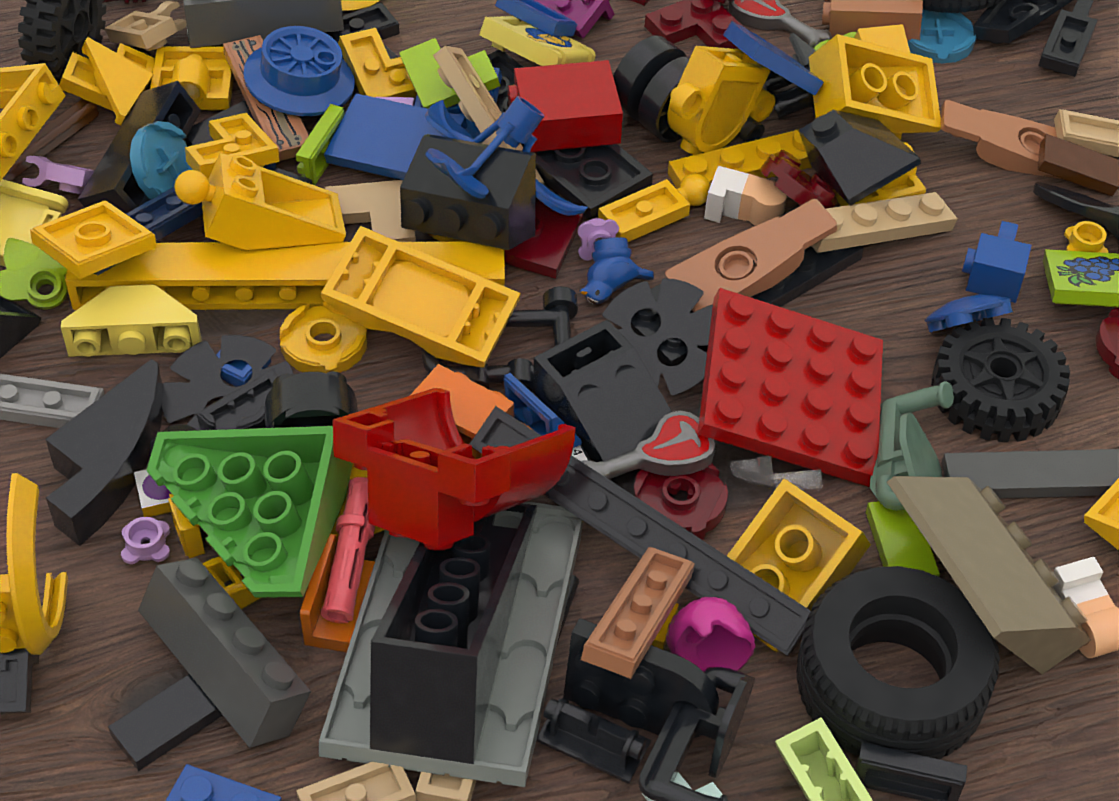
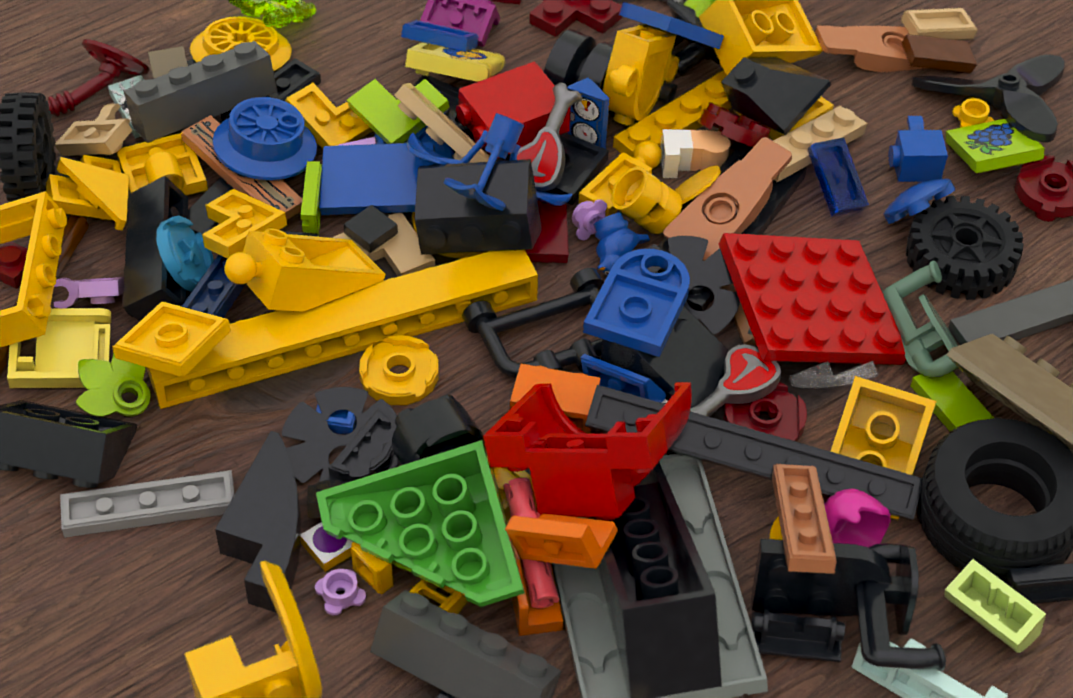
camera: 20 degrees left, 0 degrees up
(131, 323) = (230, 404): light yellow slope -> none
(363, 188) = (370, 228): none -> black tile
(367, 552) = (561, 539): none -> orange panel
(420, 298) = (480, 311): yellow slope -> none
(571, 164) = (547, 148): none -> flat silver piece
(587, 335) = (640, 305): none -> blue tile
(642, 127) = (590, 114): none -> slope
(659, 231) = (646, 200): none -> yellow wheel
(724, 233) = (698, 183): none -> yellow piece
(890, 265) = (837, 176): none -> clear blue plate

